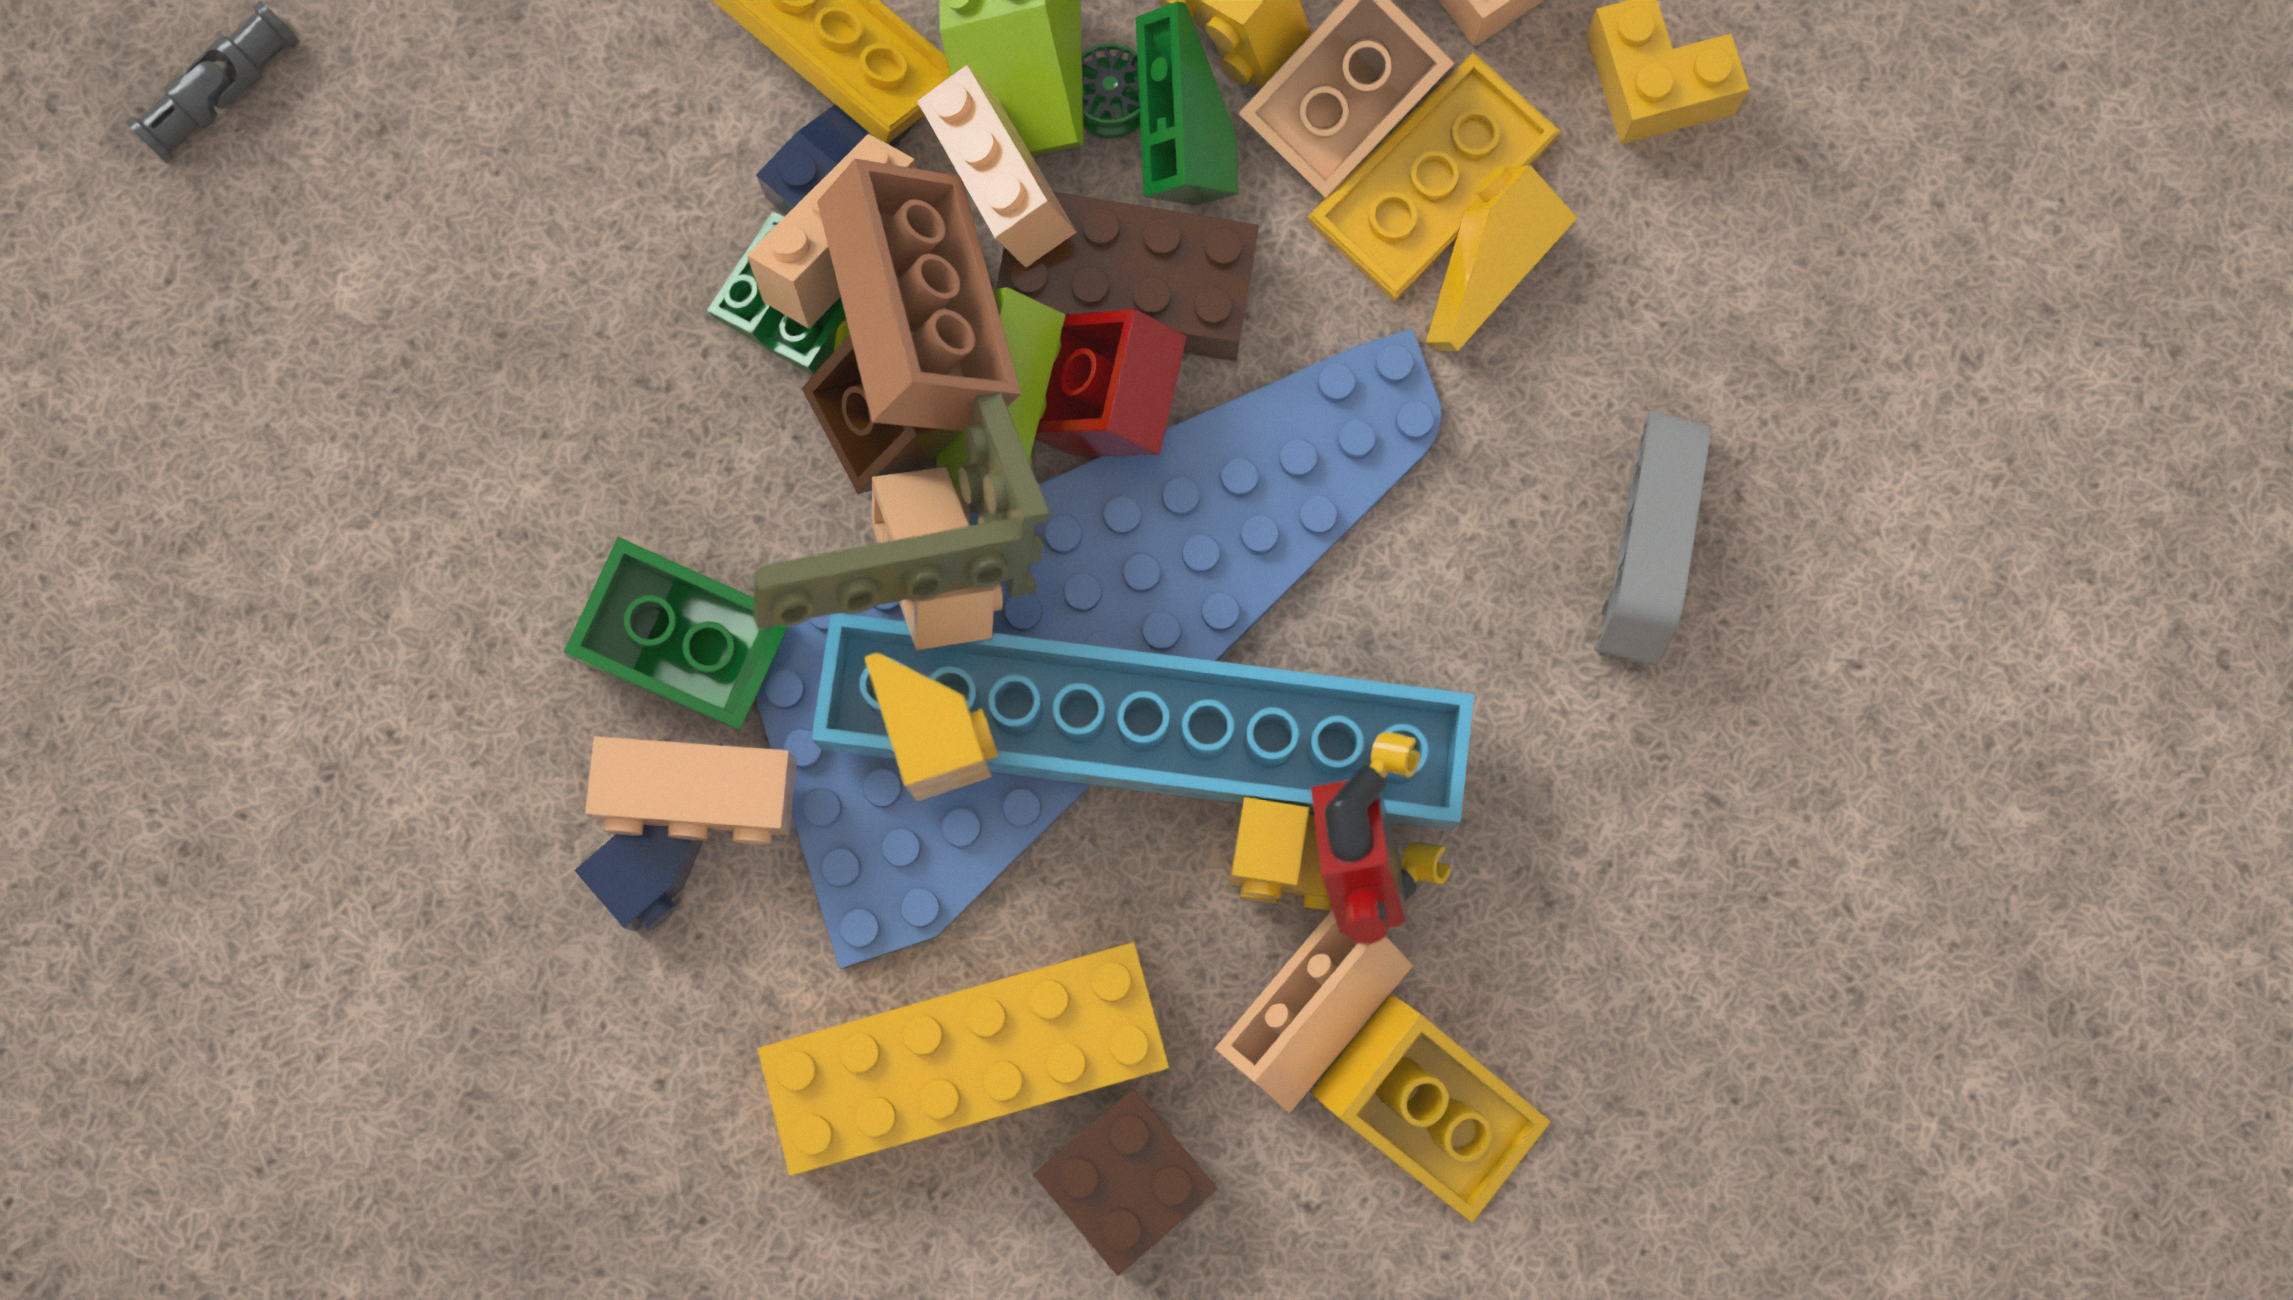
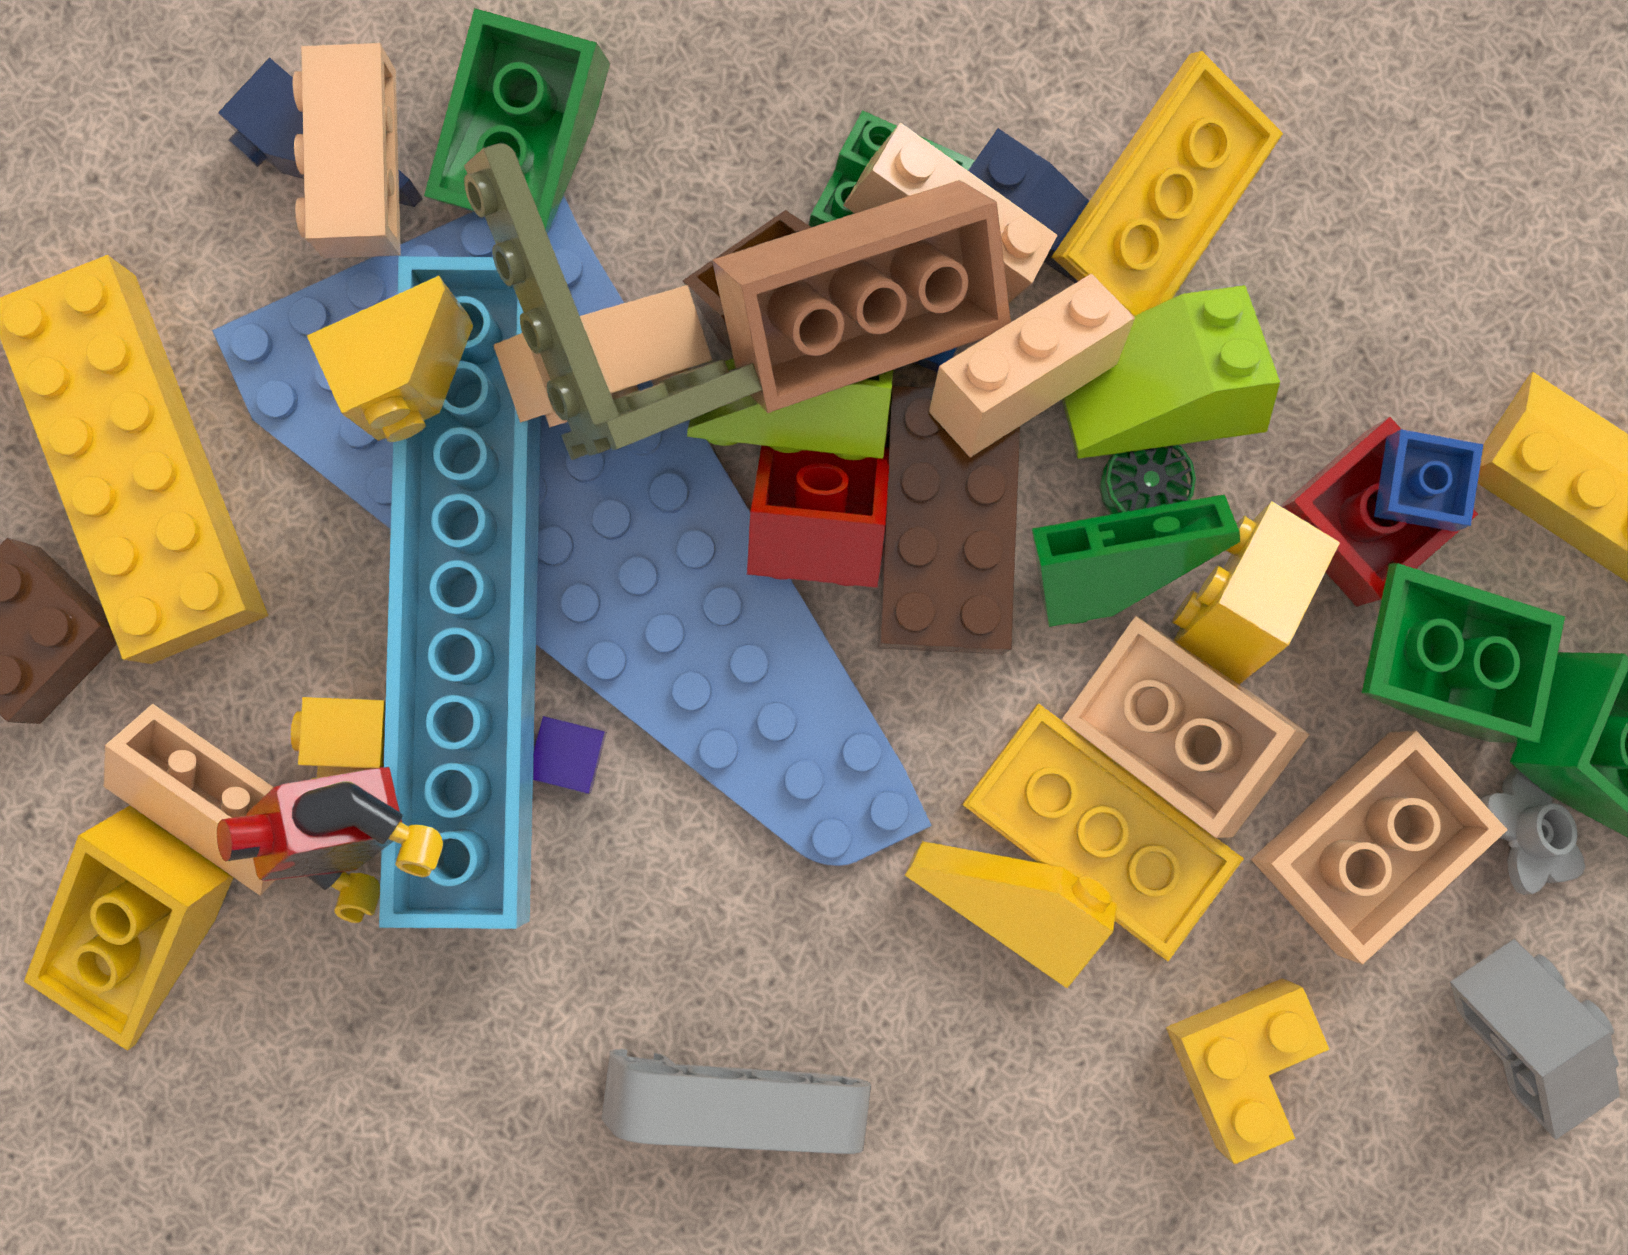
camera: 80 degrees right, 5 degrees up
(1308, 652) = (567, 754): none -> dark purple tile

